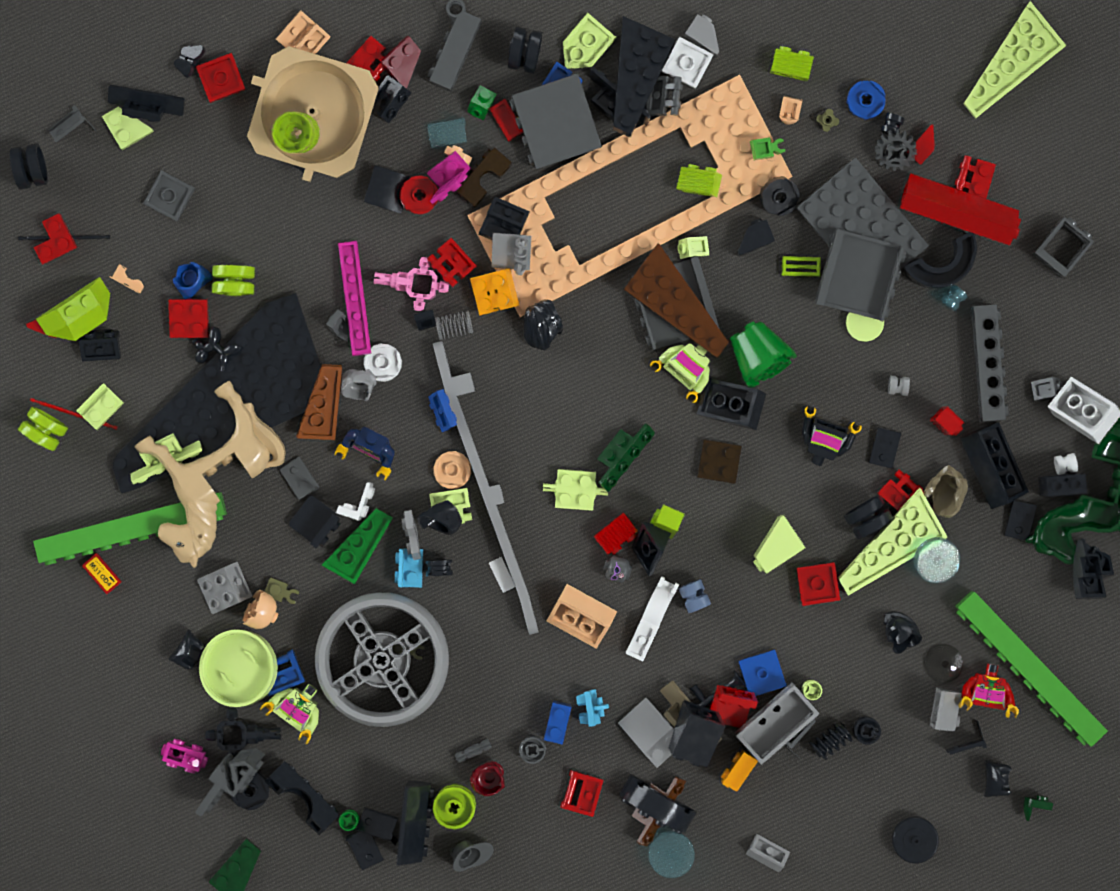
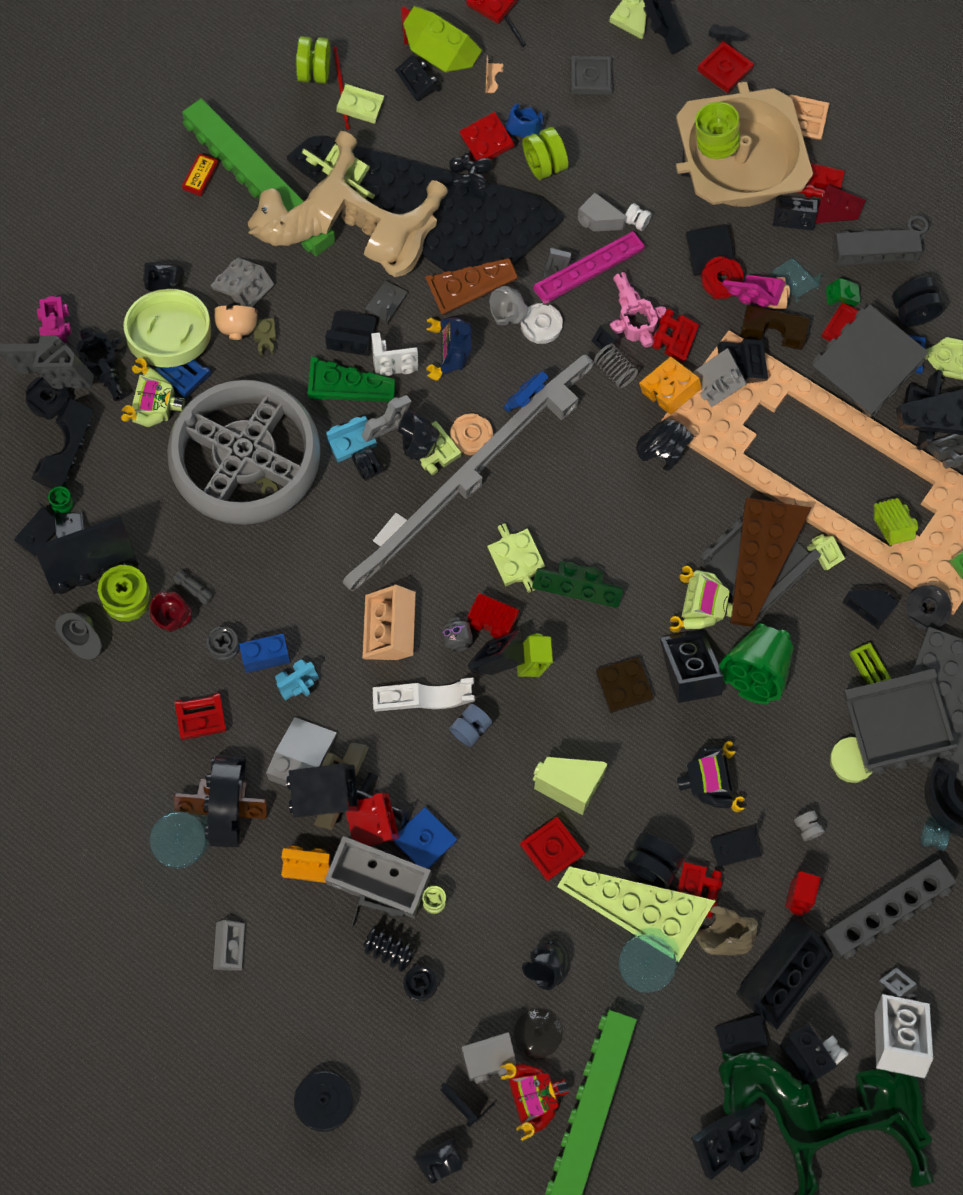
camera: 60 degrees right, 20 degrees down
(310, 263) = (600, 215): none -> light grey slope
(323, 234) = (638, 217): none -> white wheel

